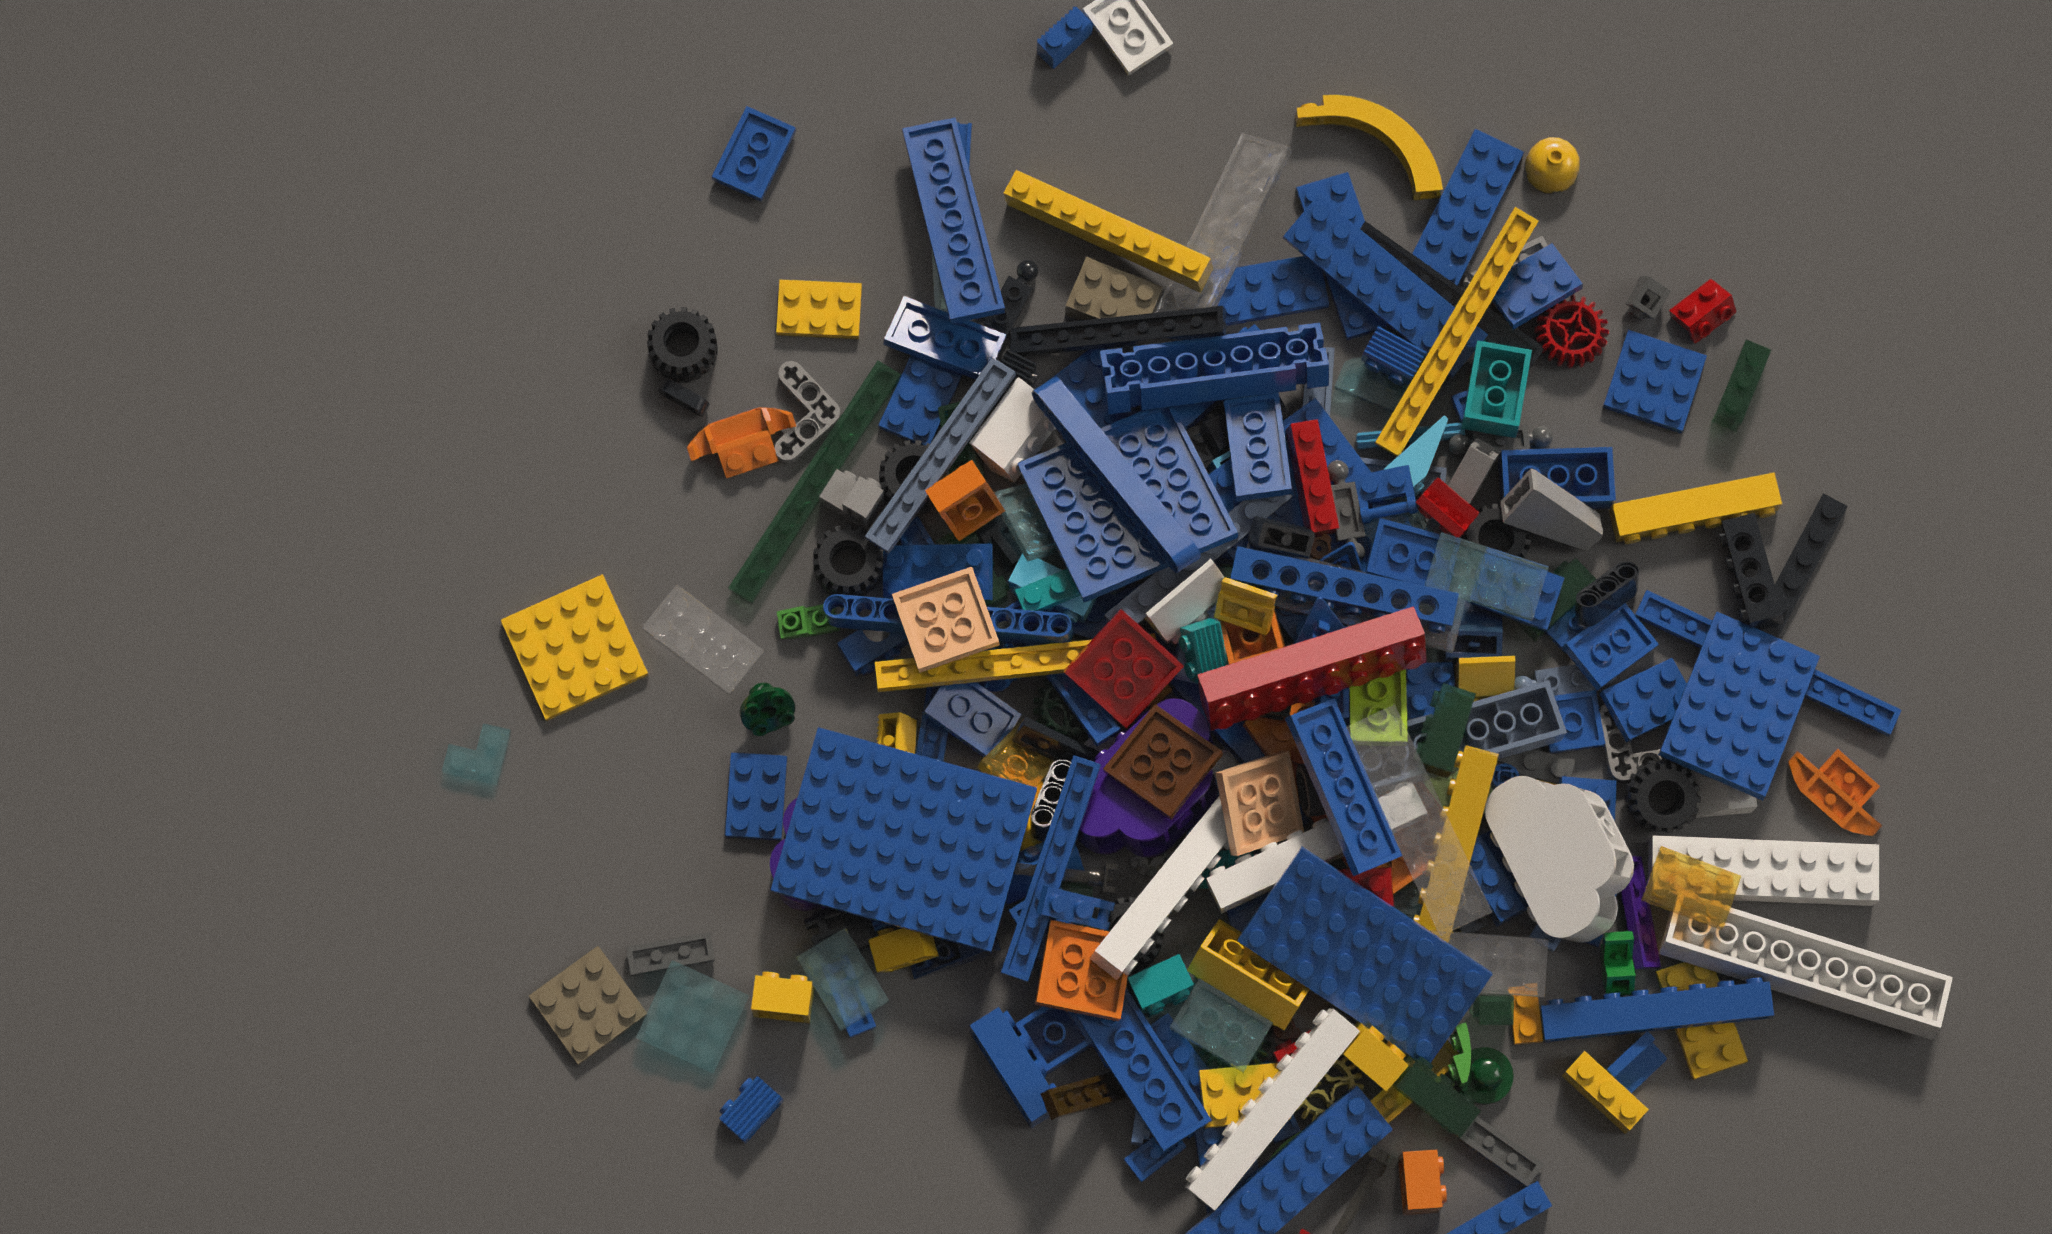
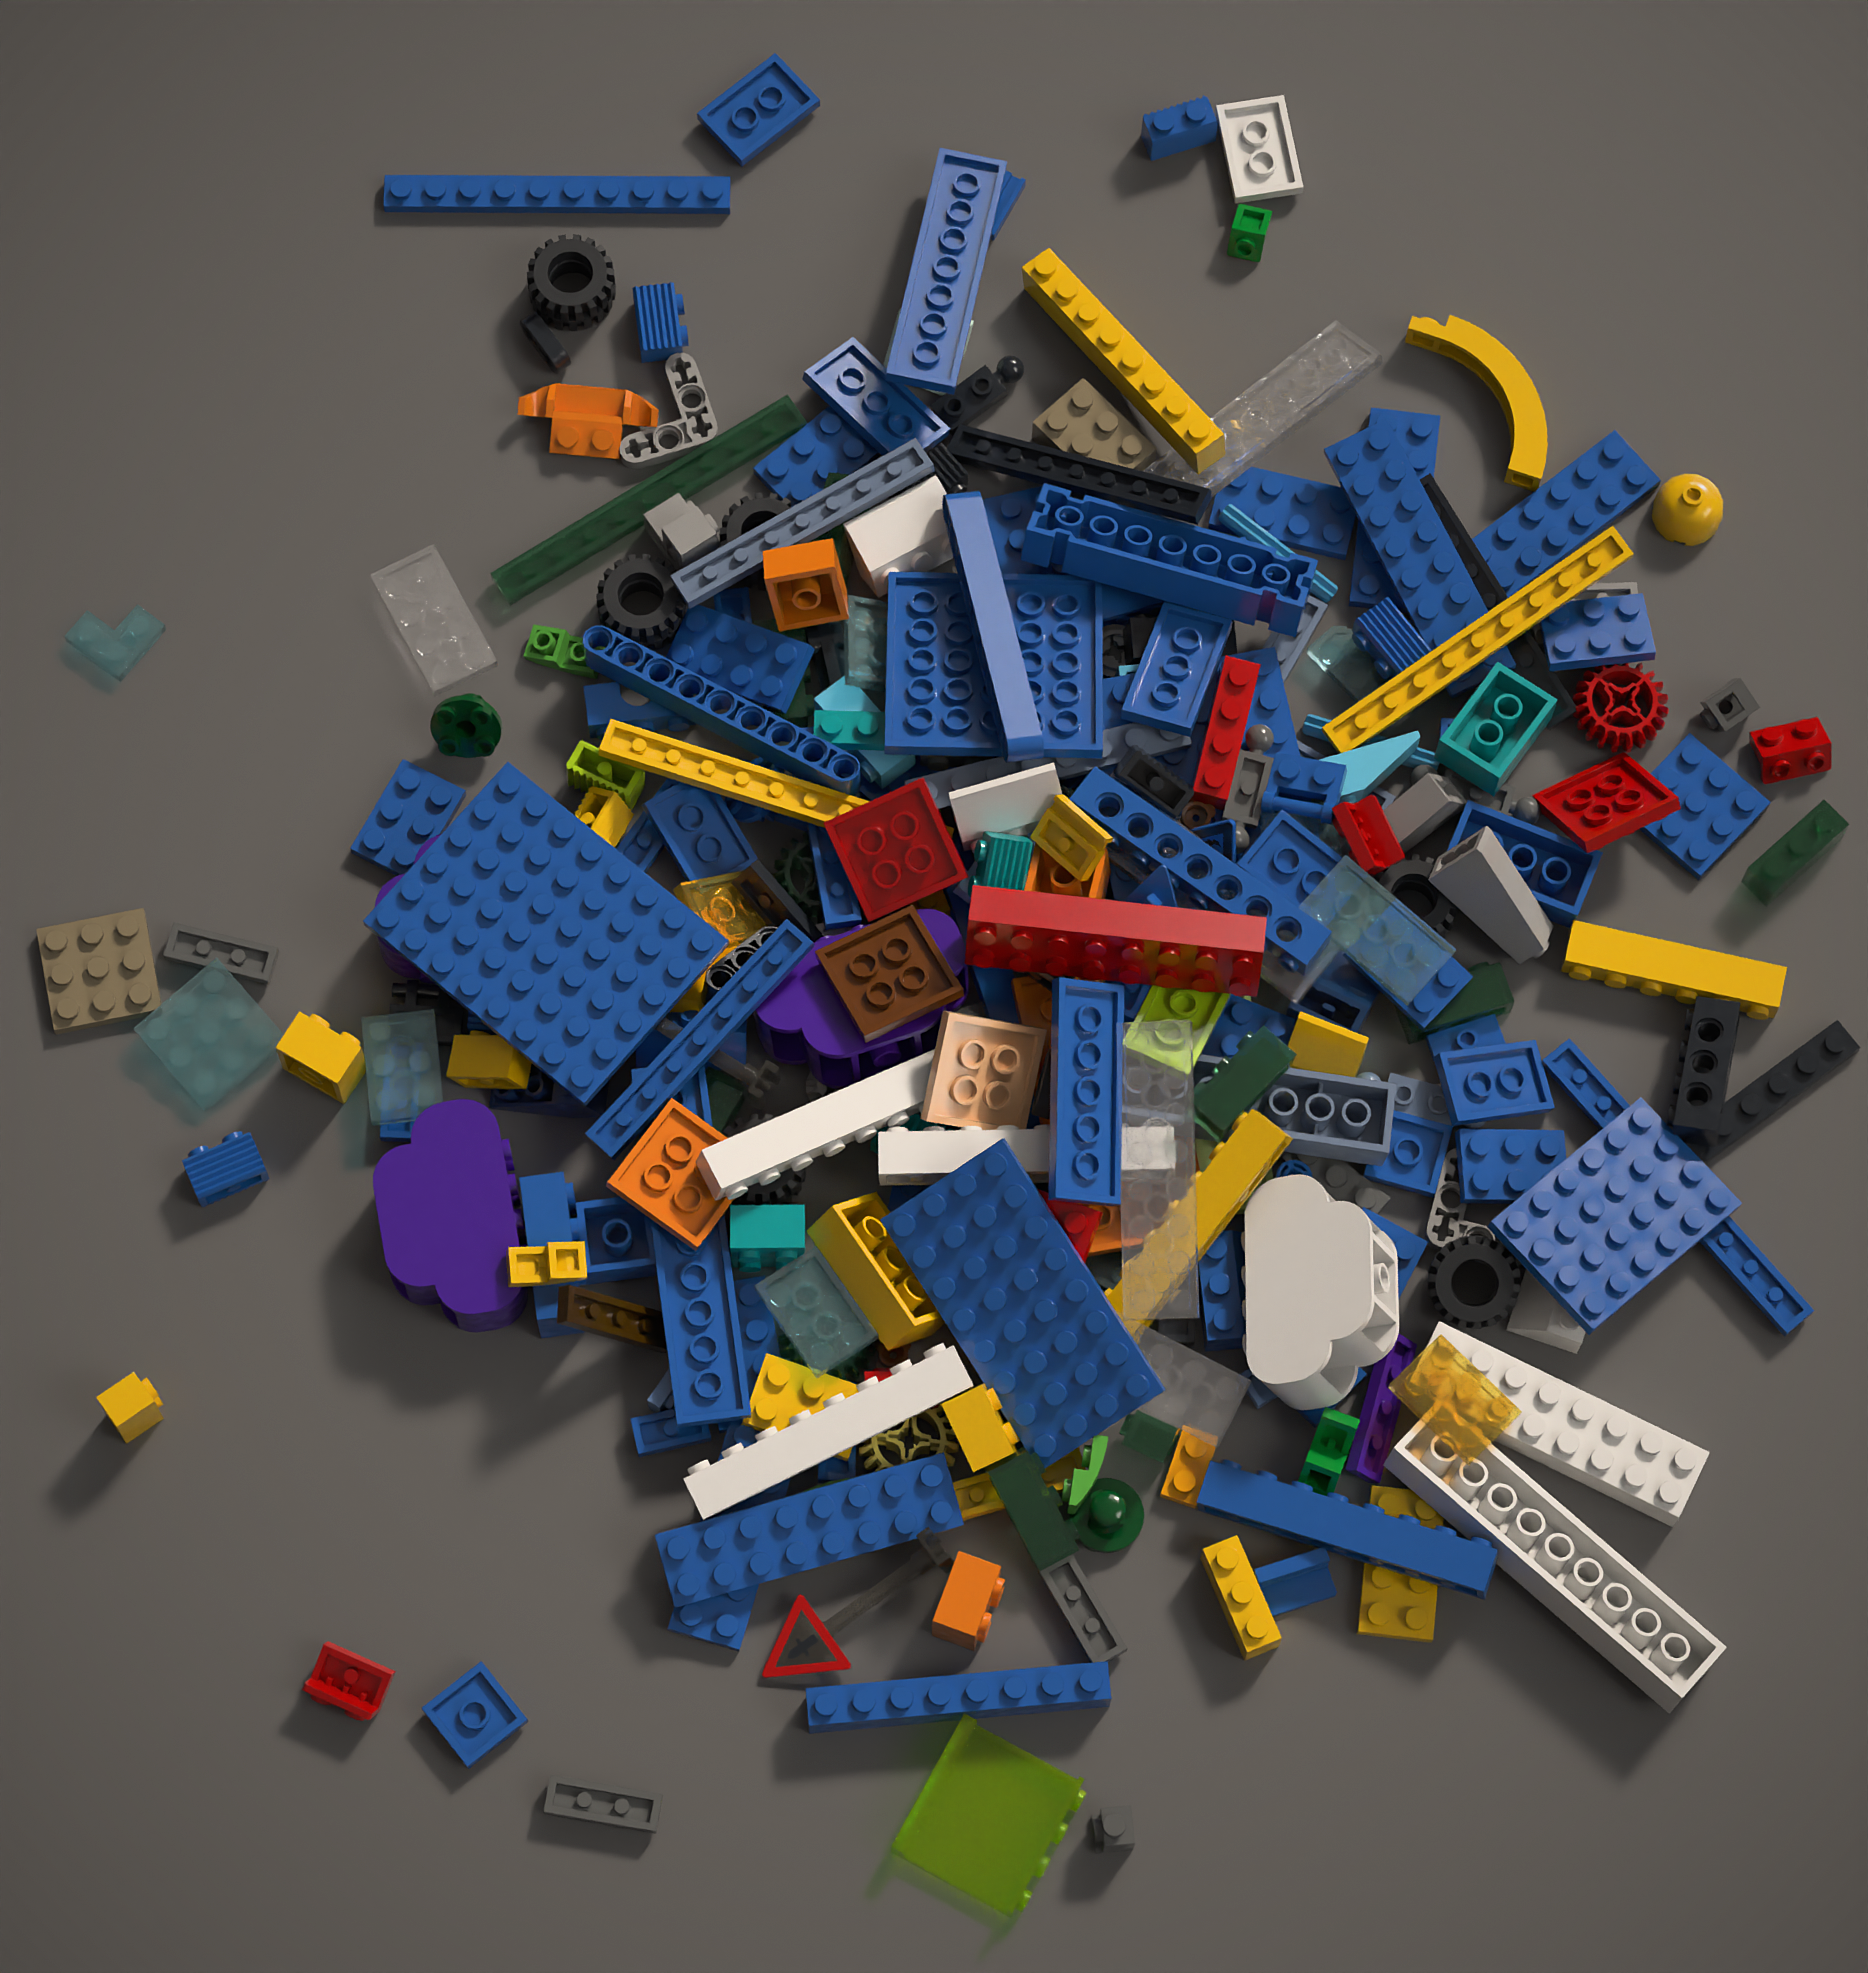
camera: 25 degrees right, 5 degrees down
(574, 647) = (283, 566): yellow plate -> none
(637, 281) = (557, 194): none -> blue plate
(758, 346) = (658, 321): none -> blue brick
(819, 309) = (749, 312): yellow plate -> none
(871, 703) = (589, 769): none -> lime brick
(933, 1073) = (453, 1216): none -> dark purple brick
(945, 619) = (714, 704): light nougat plate -> none
(1020, 1079) = (546, 1264): none -> yellow slope
(1074, 907) = (705, 1095): blue plate -> none
(1149, 93) = (1249, 232): none -> green bracket
(1270, 321) = (1244, 526): none -> dark azure axle
(1597, 408) = (1606, 802): none -> red plate
(1606, 593) = (1517, 1020): black beam -> none
(1837, 790) = (1692, 1372): orange plate -> none

